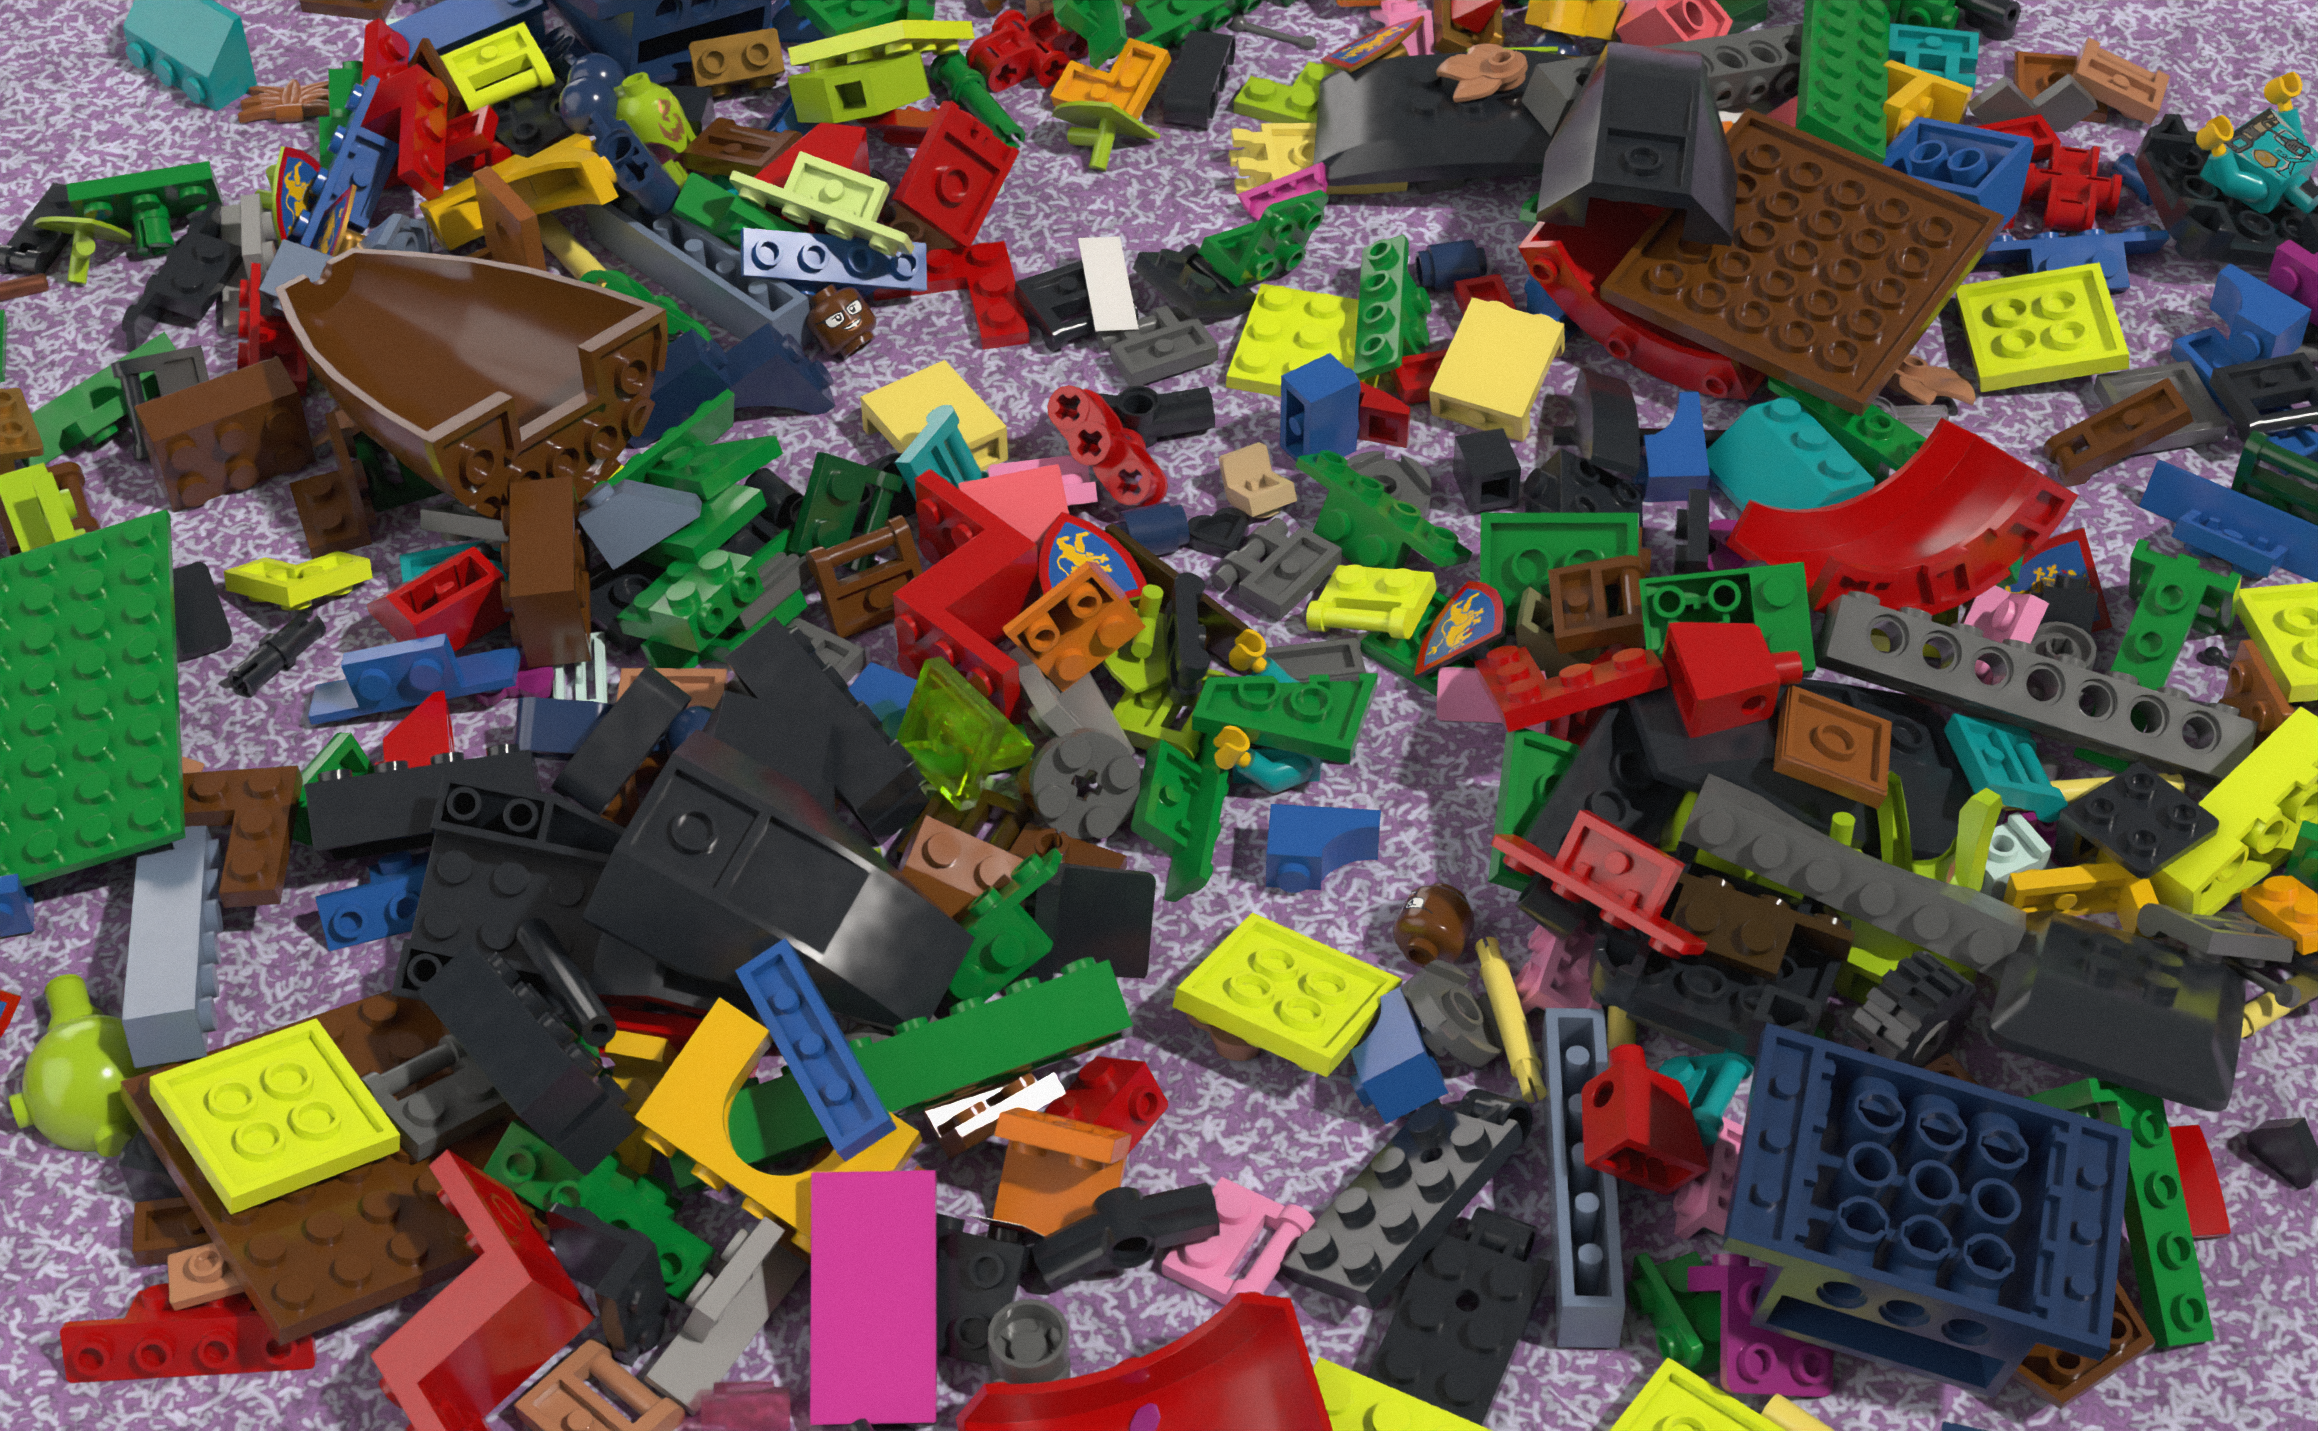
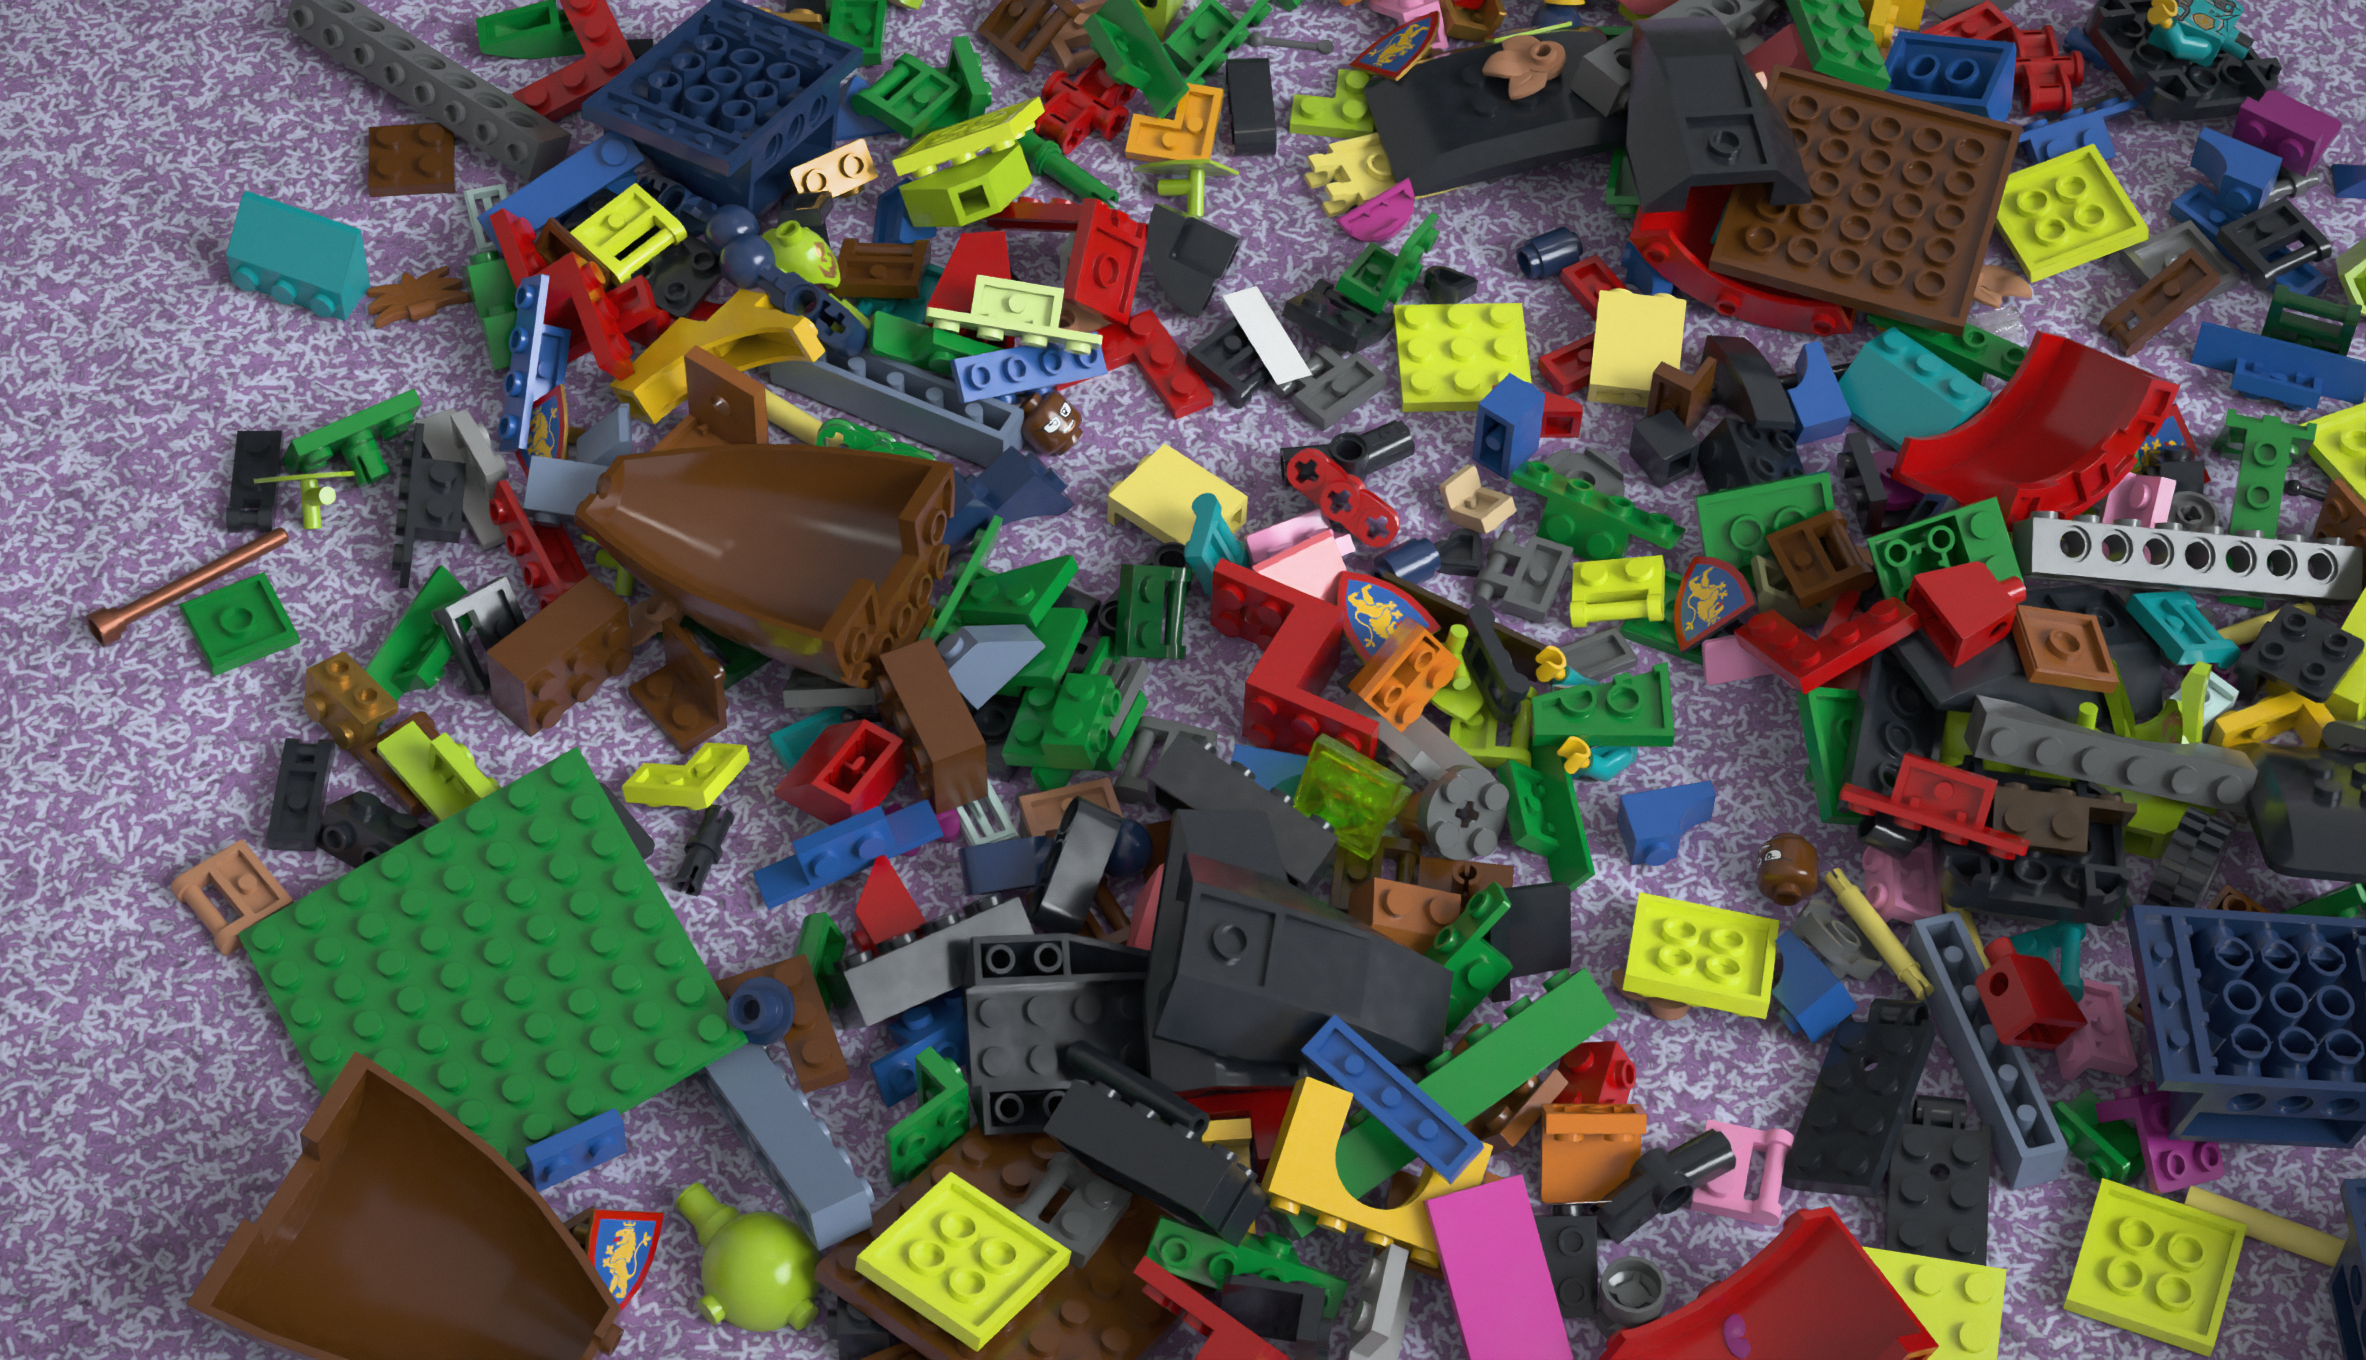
camera: 20 degrees left, 5 degrees up
(208, 806) = (762, 1010): none -> dark blue piece
(290, 188) = (484, 401): shield -> none
(339, 967) = (935, 1125): none -> green bracket
(686, 77) = (806, 208): none -> black tile
(866, 596) = (1203, 675): reddish brown plate -> none
(1060, 194) = (1189, 256): none -> black brick
(1330, 275) = (1449, 285): none -> black tile
(1389, 310) = (1519, 310): green bracket -> none
(1529, 419) = (1682, 393): none -> reddish brown panel

